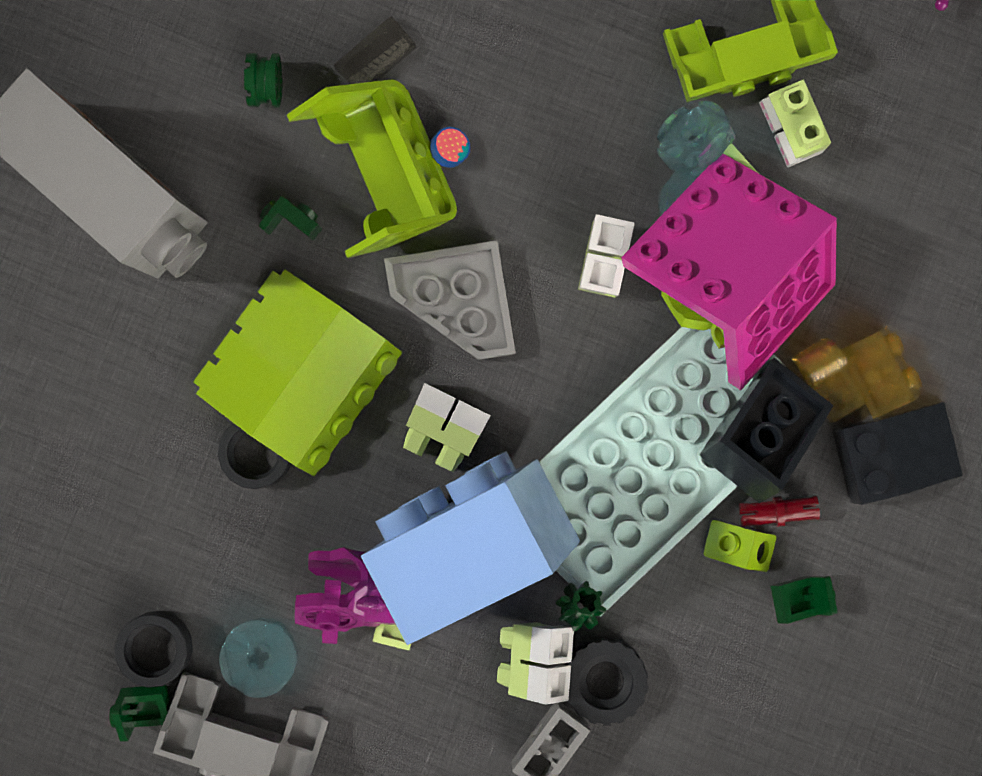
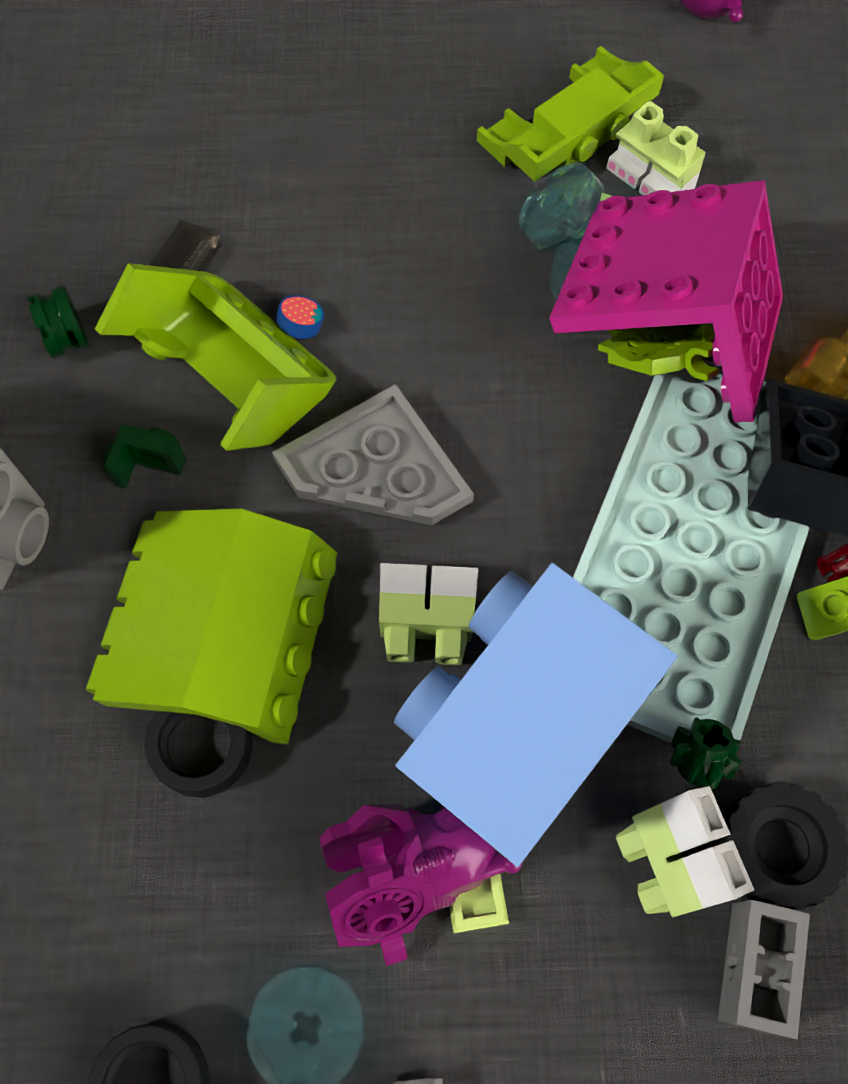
camera: 25 degrees left, 20 degrees down
(603, 262) = (527, 344): white hips -> none

